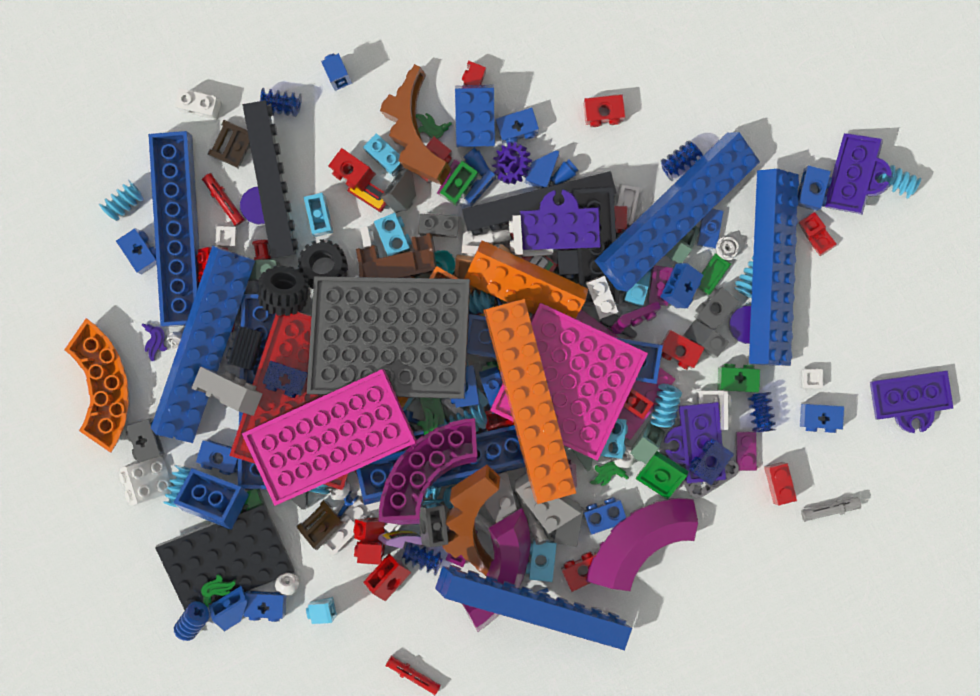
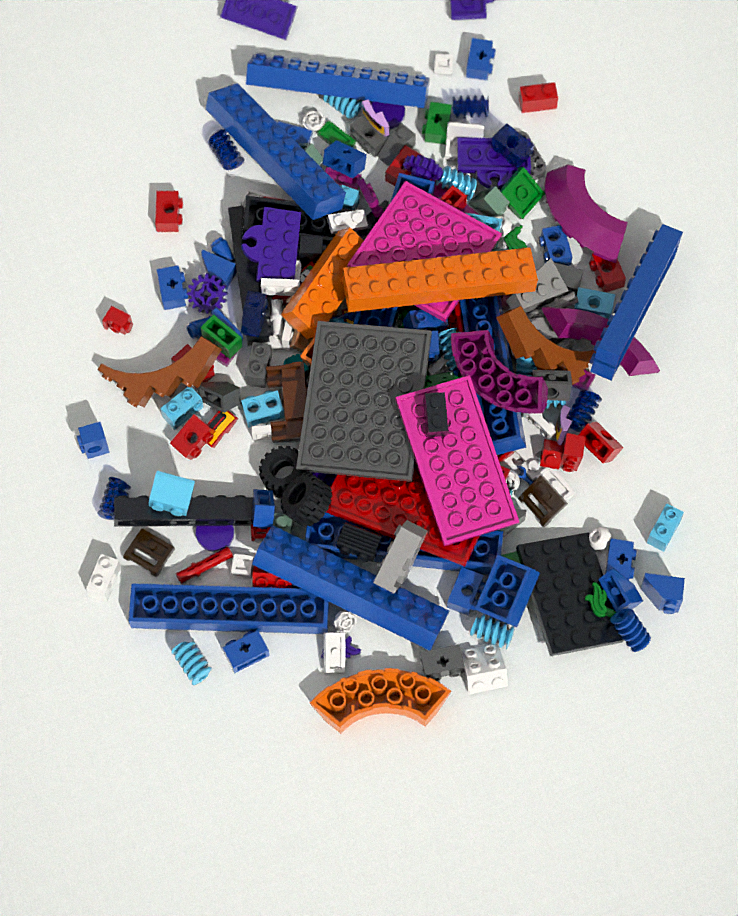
camera: 85 degrees left, 20 degrees down
(143, 336) = (334, 652): none -> white plate
(232, 655) = (664, 591): none -> blue slope
(270, 155) = (171, 493): none -> medium azure slope
(276, 248) = (263, 508): none -> blue slope
(296, 376) = (394, 502): clear blue brick -> none
(304, 648) = (665, 527): none -> medium azure brick
(318, 214) = (233, 472): medium azure brick -> none
(321, 611) = (629, 505): medium azure slope -> none
(363, 412) = (435, 414): none -> black brick
(411, 675) = (693, 438): red pin -> none
(429, 126) = (164, 361): green piece -> none
(474, 115) = (156, 319): blue brick -> none
(485, 213) = (254, 313): none -> clear blue slope
(672, 369) = (423, 167): none -> dark purple gear
(726, 316) = (376, 120): none -> lavender slope
(746, 451) = (496, 122): magenta plate -> none
(816, 234) = (312, 48): red slope -> none
(821, 179) = (261, 38): blue brick -> none
(837, 507) = (564, 54): light grey pin -> none

